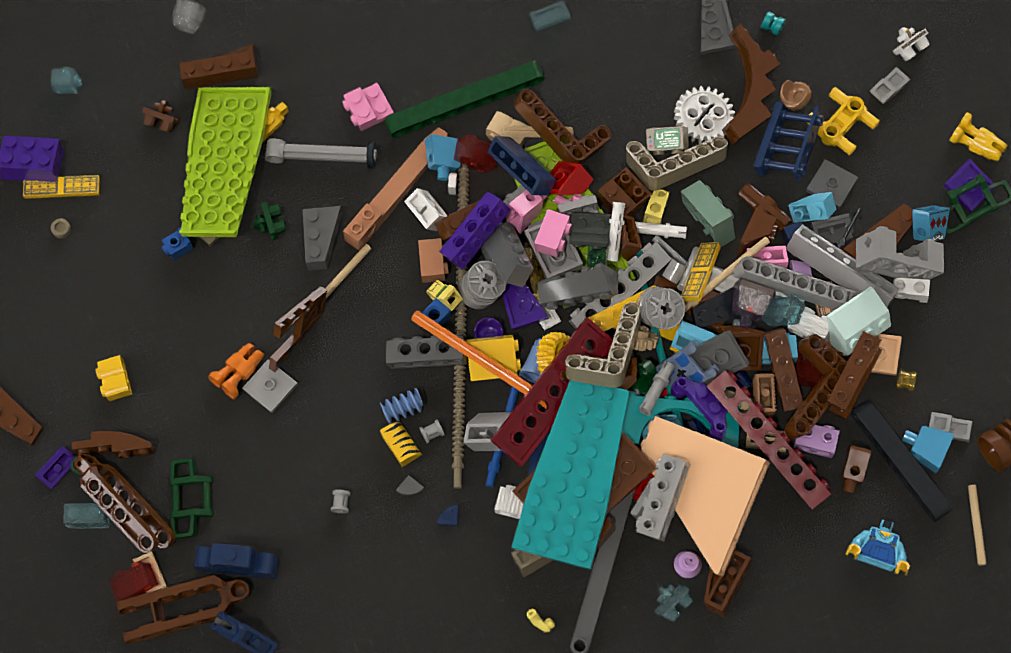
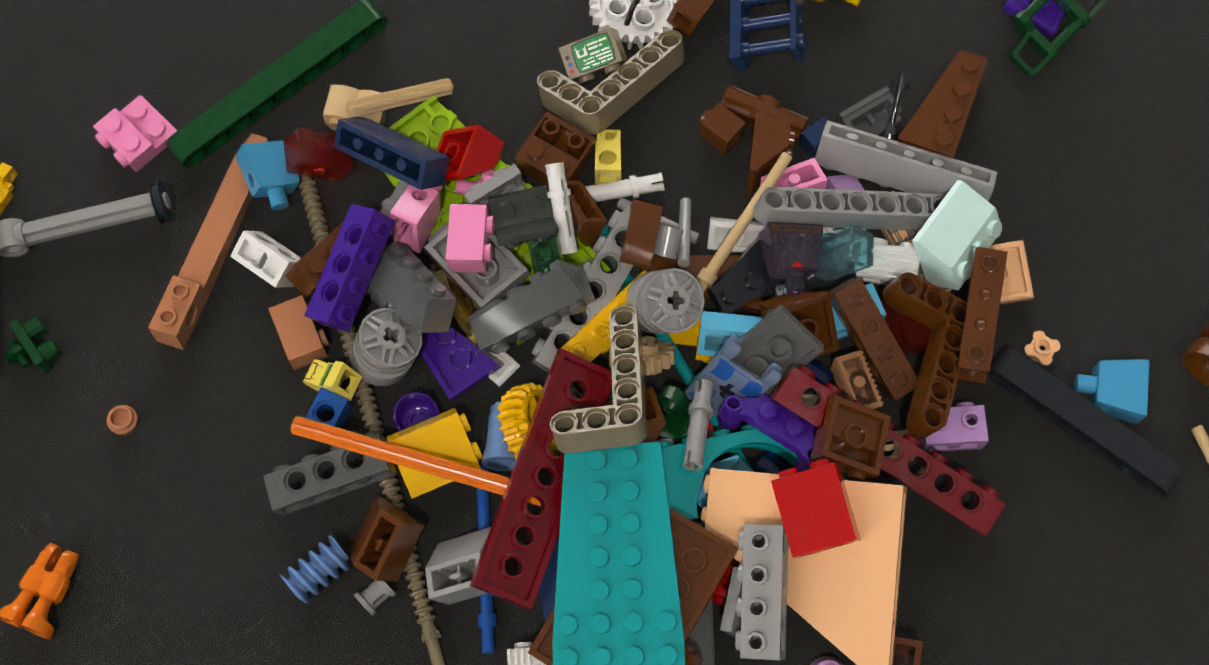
camera: 20 degrees left, 0 degrees up
(270, 387) = (101, 601): light grey plate -> none
(304, 317) = (124, 477): reddish brown wing -> none
(311, 282) = (122, 419): none -> nougat plate
(319, 235) = (114, 344): dark grey wedge -> none
(347, 269) = (168, 393): tan bar -> none
(400, 443) = (331, 628): yellow brick -> none
(447, 401) = (384, 541): none -> reddish brown slope
(452, 183) = (296, 209): white tile -> none
(558, 131) = (428, 91): reddish brown beam -> none
(659, 262) = (641, 234): none -> reddish brown slope
(700, 271) = (704, 231): yellow tile -> none
(708, 457) = (815, 508): none -> red brick
(710, 212) = (688, 141): sand green wedge -> none
(737, 207) = (721, 128): none -> reddish brown brick
(745, 424) = (852, 438): none -> reddish brown plate
(813, 207) = (833, 93): medium azure slope -> none
(832, 179) = (846, 53): dark grey plate -> none
(856, 459) = (1025, 441): reddish brown torso -> none
(878, 255) = (958, 130): light grey plate -> none
(880, 548) = (1104, 563): torso -> none
(890, 413) = (1041, 356): none -> light nougat plate
(906, 379) = (1050, 300): clear yellow wheel -> none
(912, 289) = (1014, 166): white leg -> none
(930, 222) = (1007, 70): dark azure torso -> none
(958, 427) = (1131, 347): light grey slope -> none

